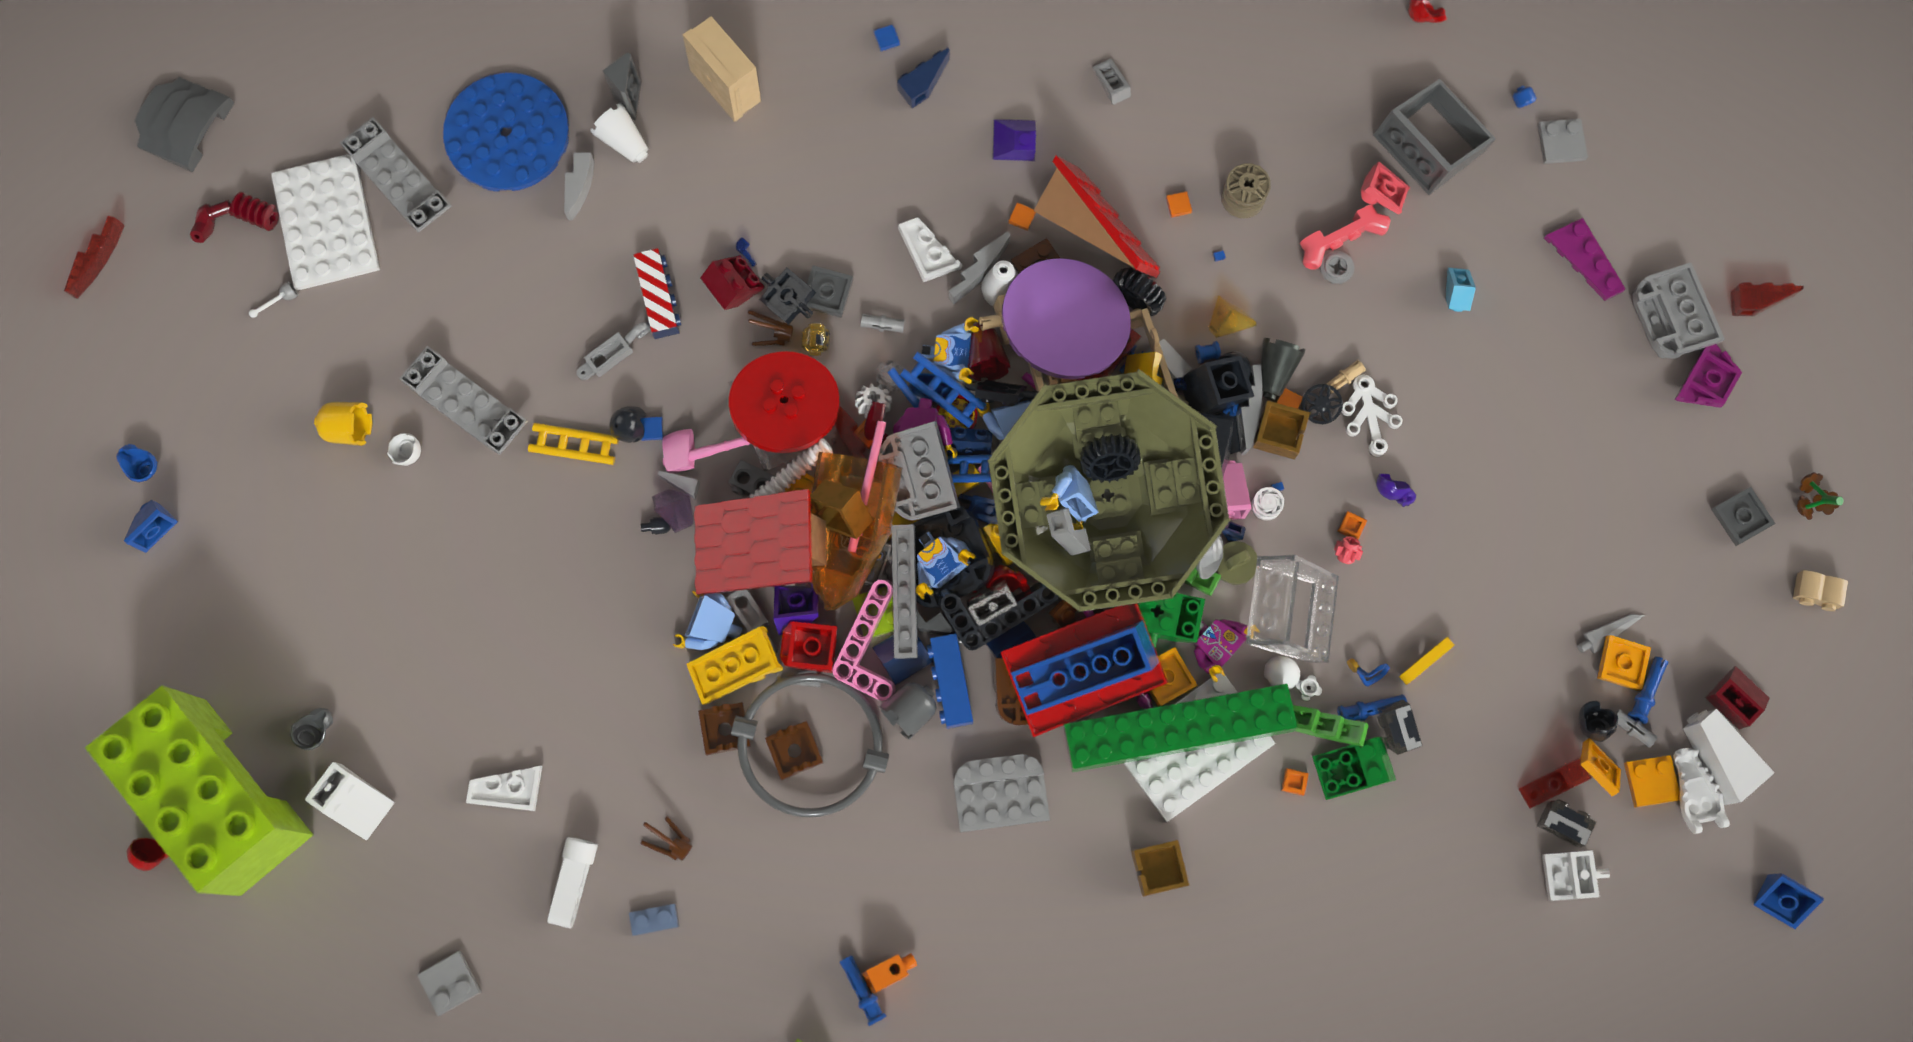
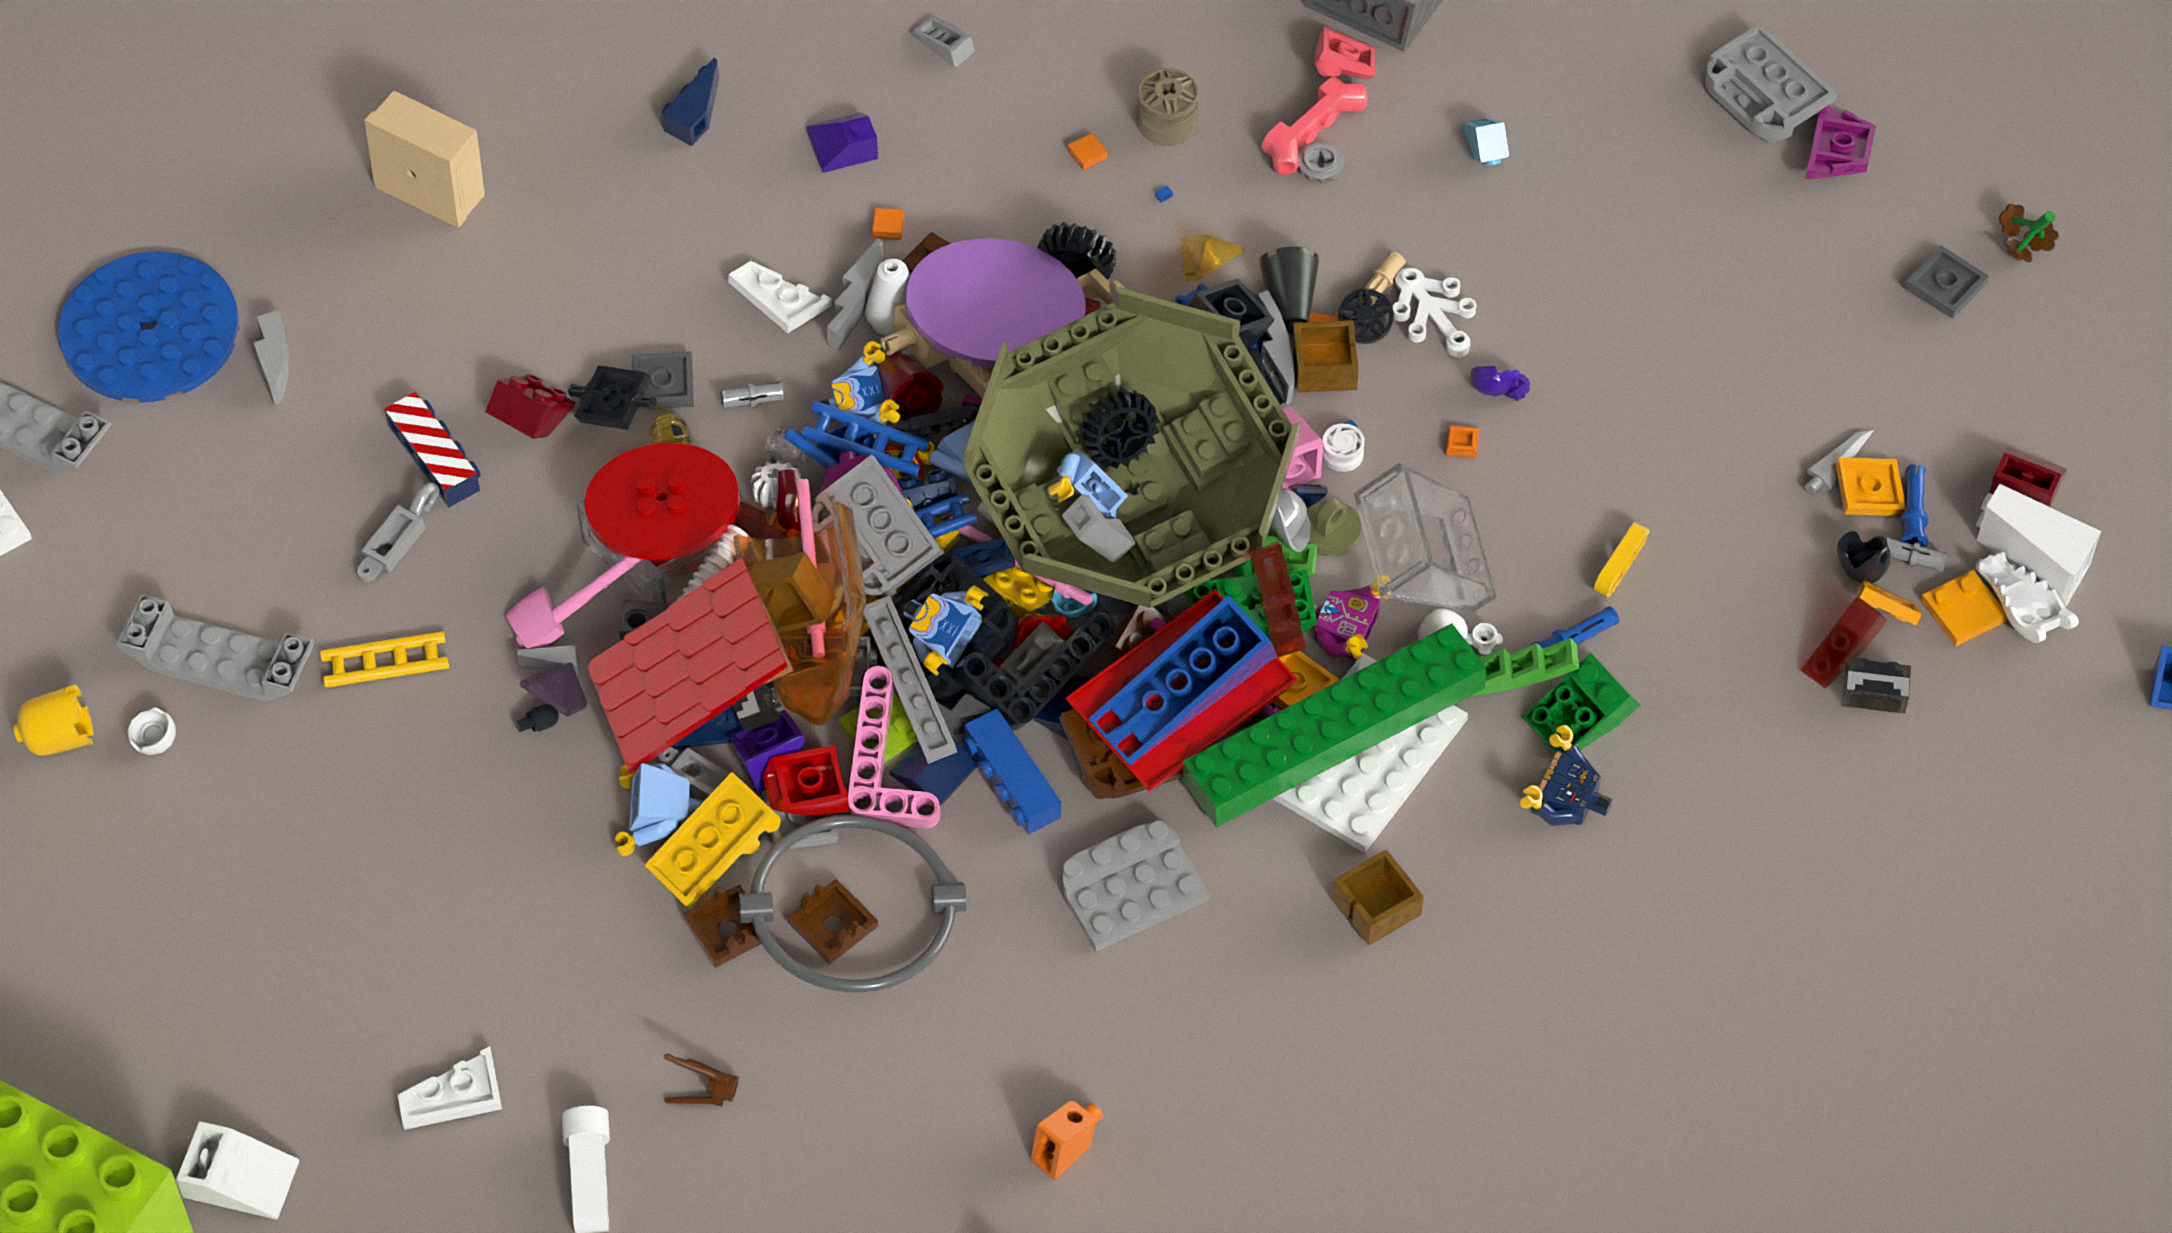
camera: 20 degrees left, 20 degrees down
(311, 729) = (148, 1103): dark grey hair -> none
(621, 134) = (312, 278): white cone -> none
(624, 83) = (295, 218): dark grey slope -> none
(626, 424) = (454, 608): black helmet -> none
(653, 428) = (486, 609): blue tile -> none
(653, 919) = (719, 1185): sand blue plate -> none
(741, 247) = (526, 366): clear blue hand -> none
(782, 330) = (619, 443): reddish brown plant -> none
(866, 1000) = (1051, 1182): blue pin -> none
(886, 38) = (626, 75): blue tile -> none
(910, 708) = (969, 819): dark grey cylinder -> none
(1078, 207) = (967, 184): piece -> none
(1172, 628) = (1277, 599): none -> clear red slope
(1295, 782) = (1512, 751): orange tile -> none
(1321, 828) = (1567, 787): none -> torso
(1348, 550) = (1468, 466): coral gear -> none
(1353, 665) = (1532, 596): blue piece -> none
(1399, 727) = (1617, 640): brick -> none
(1572, 875) = (1909, 741): white plate -> none
(1586, 256) = (1622, 54): magenta wing -> none
(1754, 299) = (1862, 41): clear red slope -> none
(1820, 590) = (2076, 332): tan brick -> none

